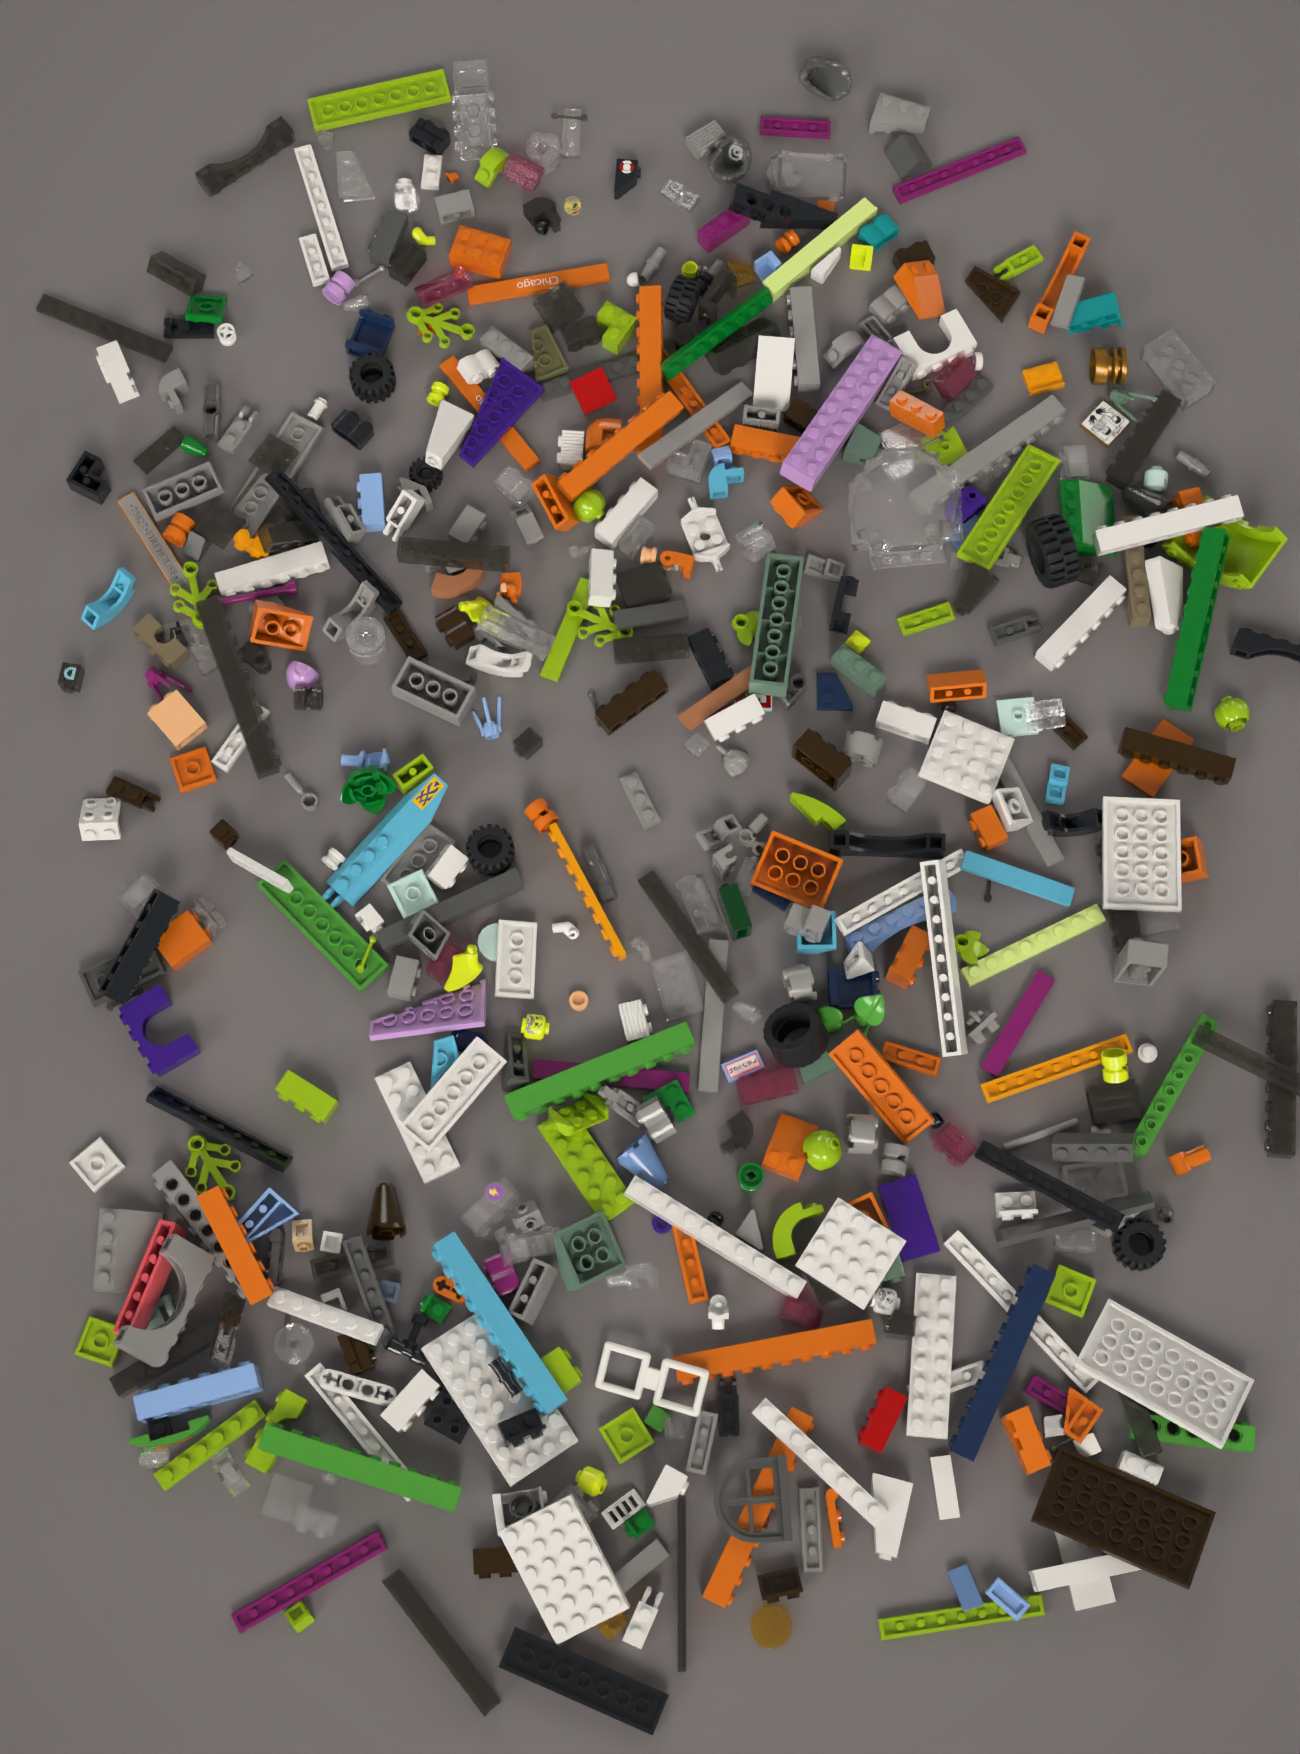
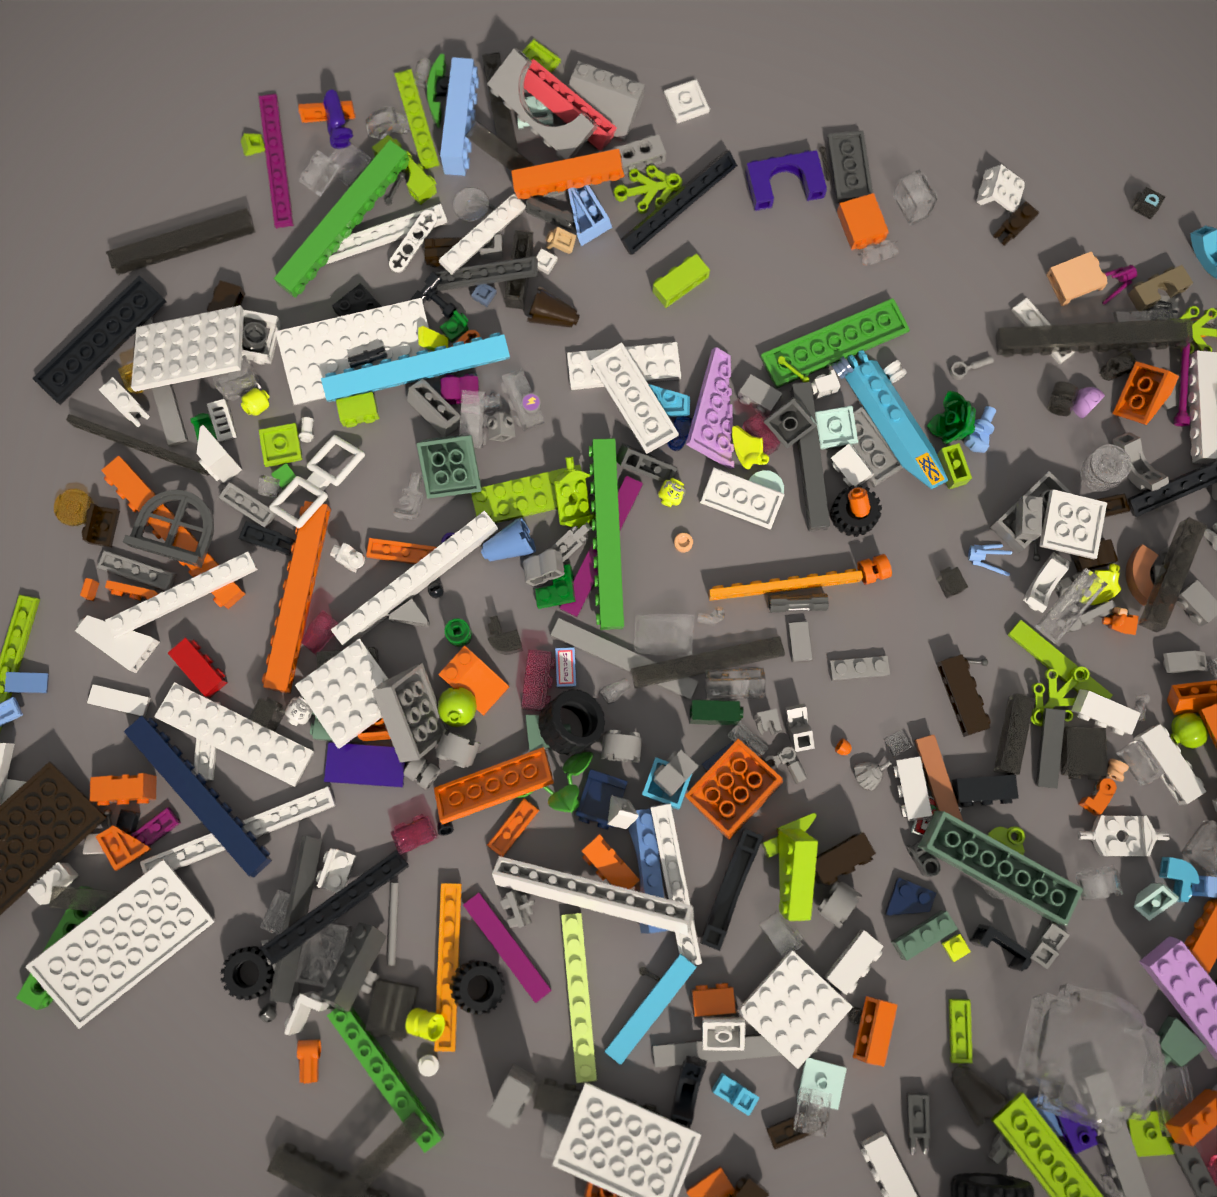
camera: 110 degrees right, 5 degrees up
(139, 947) = (866, 177): black brick -> none
(193, 769) = (1023, 281): orange tile -> none
(224, 834) = (950, 285): dark brown brick -> none
(235, 1545) = (316, 111): none -> orange tile
(248, 1522) = (339, 136): none -> dark purple piece
(259, 870) = (904, 302): white tile -> none
(347, 908) = (842, 367): none -> sand blue wheel
(411, 1401) = (383, 279): white brick -> none
(437, 651) = (1073, 524): none -> white plate
(447, 690) = (1028, 518): none -> light grey brick
(462, 1320) = (430, 339): none -> neon yellow tile
(485, 845) = (859, 502): none -> orange brick
(521, 1427) = (319, 355): black bracket -> none
(567, 928) = (756, 556): white arm -> none
(600, 1416) = (306, 429): none -> white pin
(634, 861) = (800, 641): none -> light grey tile
(634, 1021) = (643, 583): white brick -> none
(719, 791) = (843, 747): none -> orange hinge
(752, 494) = (1154, 900): none -> light aqua slope
(781, 1237) = (392, 640): lime arch -> none
(795, 505) = (1128, 942): orange slope -> none
(846, 1567) = (89, 589): none -> orange tile
(848, 1184) = (410, 713): none -> light grey slope
(851, 789) = (796, 873): none -> lime wedge
(971, 948) = (599, 934): lime plate -> none
(1063, 1045) = (490, 997): none -> black tyre
(1070, 1291) = (236, 889): lime plate -> none
(1136, 1174) = (302, 1008): none -> white bracket

